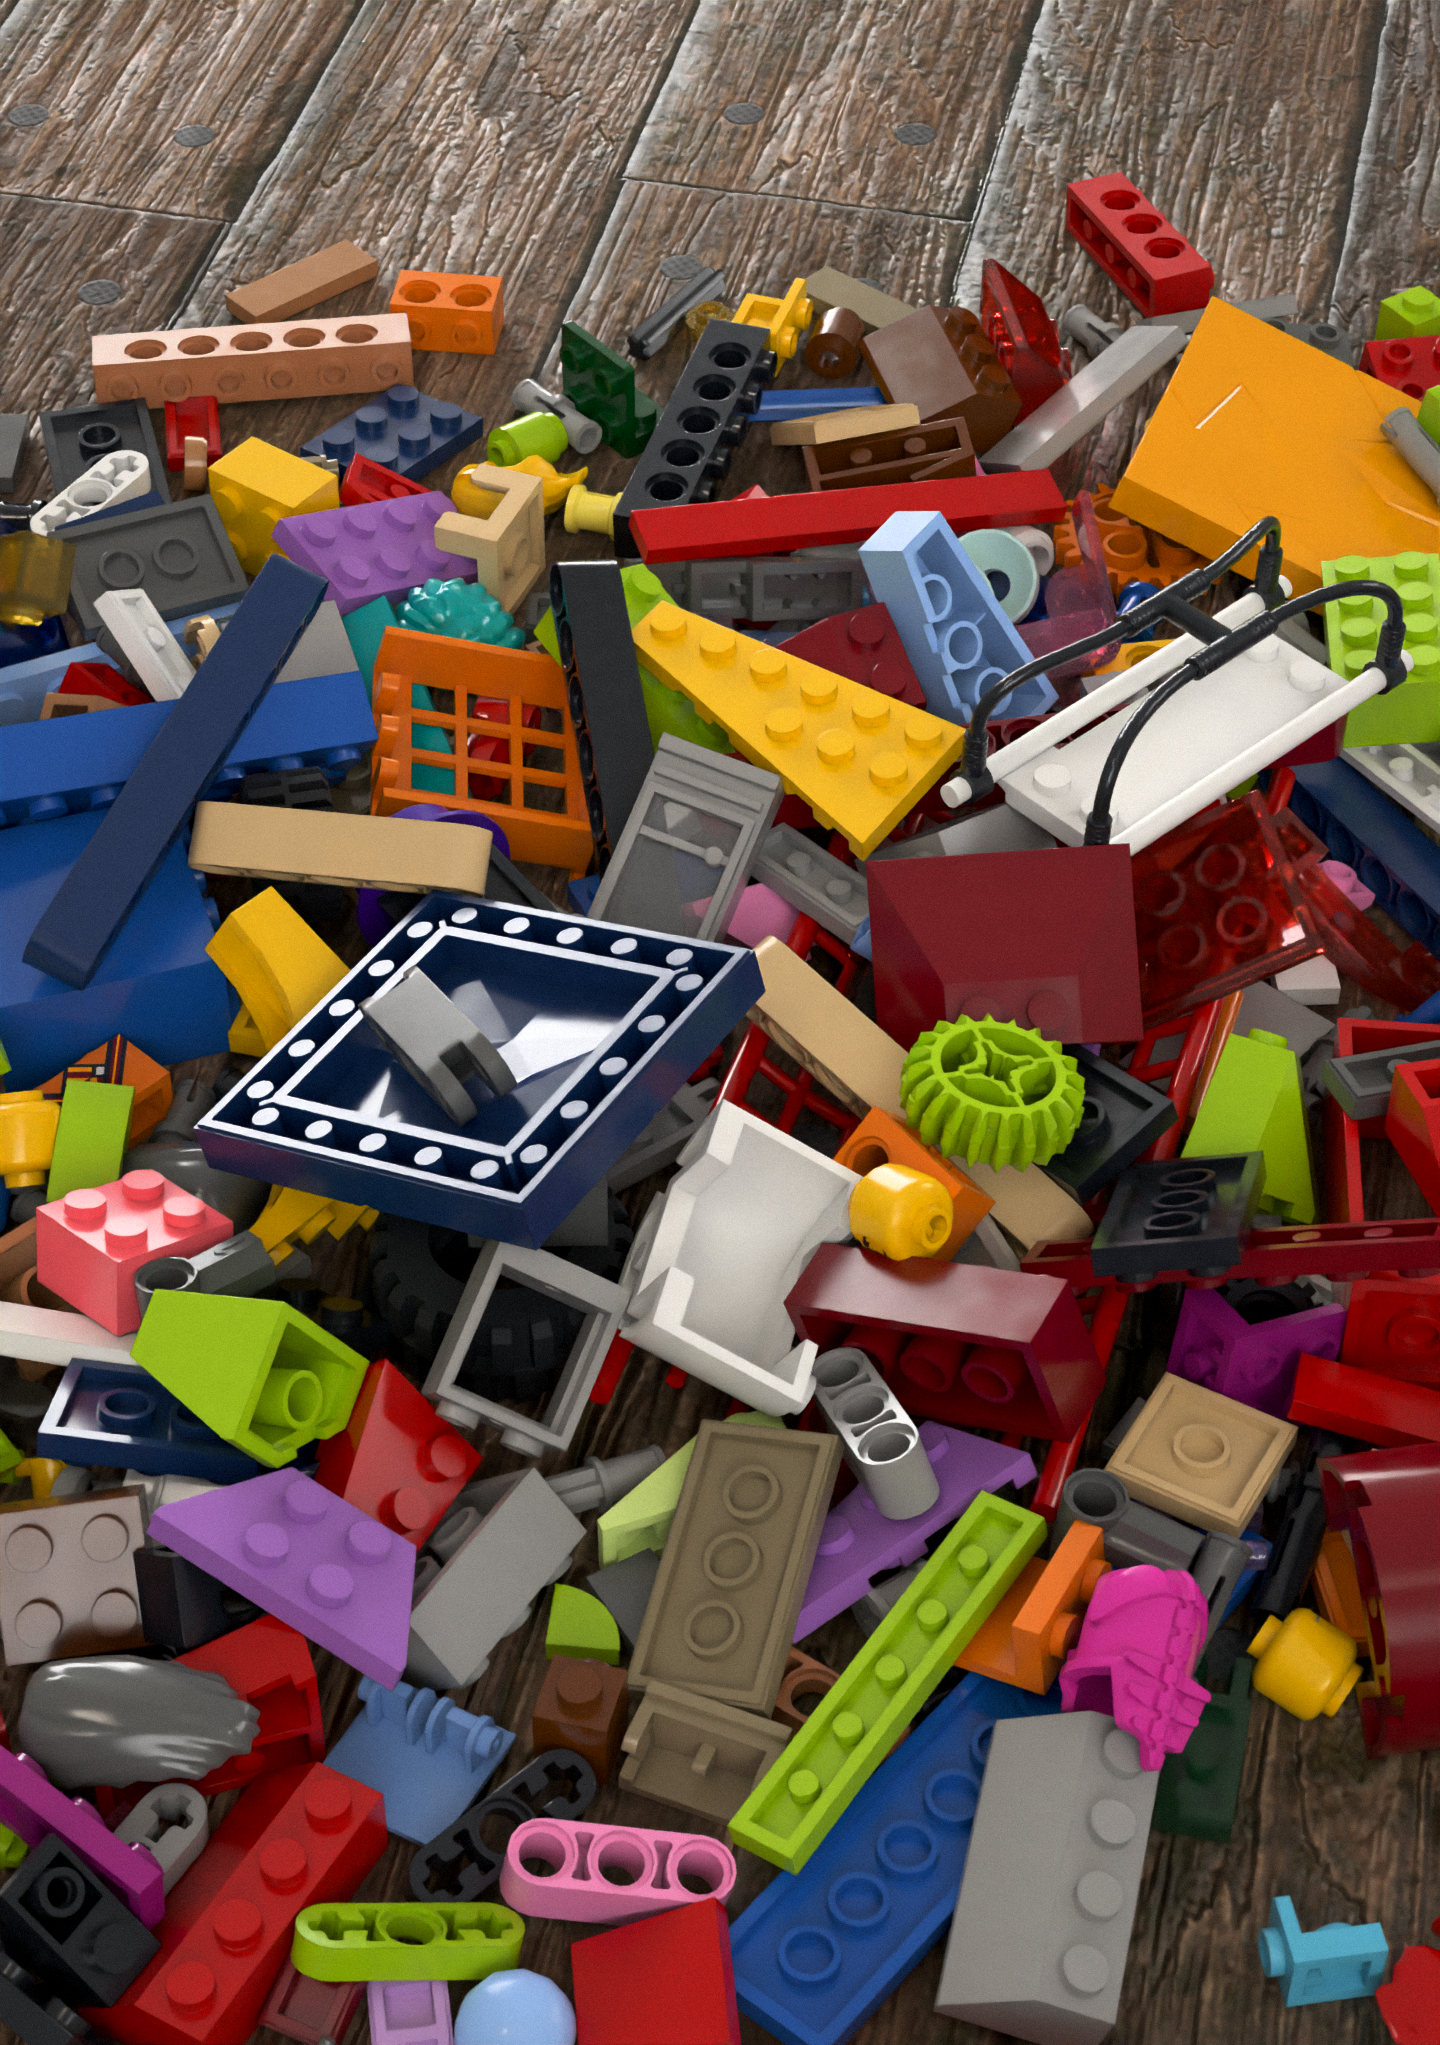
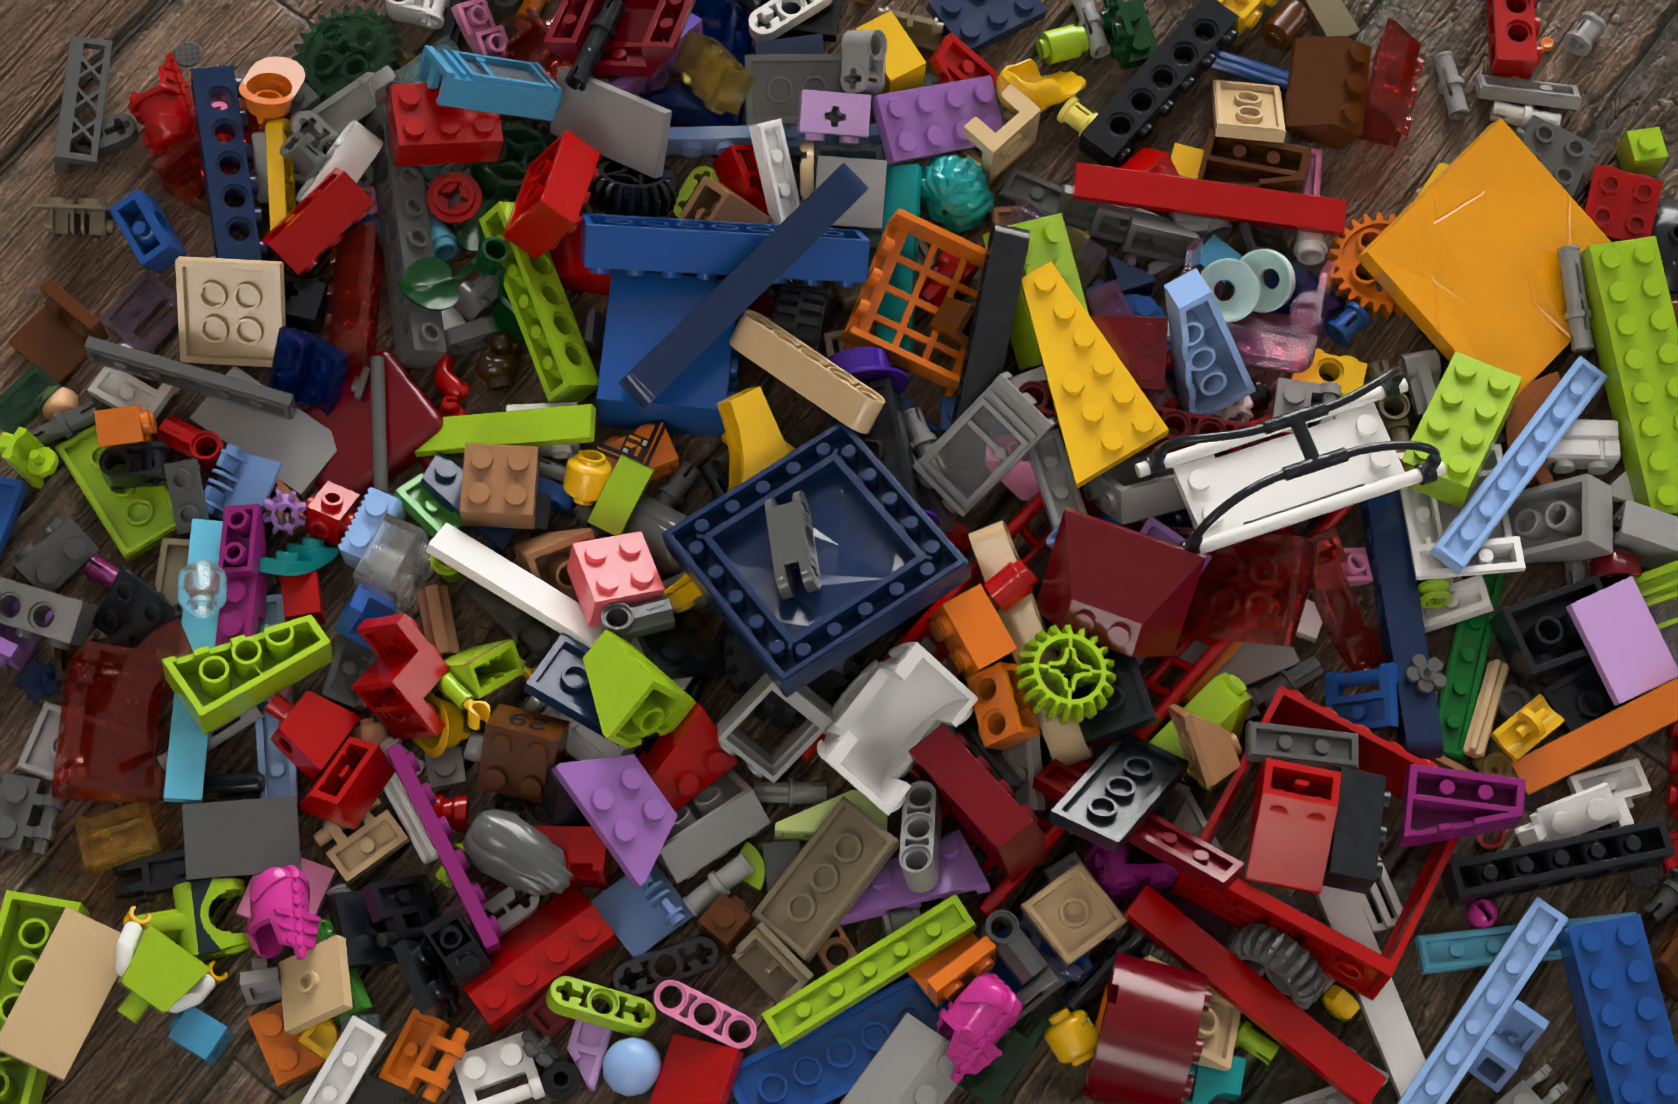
camera: 20 degrees right, 25 degrees up
(213, 566) = (851, 107): none -> lavender brick
(240, 493) = (863, 59): none -> light grey piece
(545, 758) = (953, 321): none -> reddish brown brick
(554, 1634) = (719, 882): none -> light grey pin
(804, 1078) = (971, 632): none -> orange brick
(831, 1002) = (1010, 585): none -> red brick
(897, 1212) = (982, 733): yellow head -> none
(1085, 399) = (1393, 154): light grey tile -> none
(1250, 245) = (1585, 33): none -> light grey bush
(1265, 1105) = (1205, 745): none -> medium nougat slope

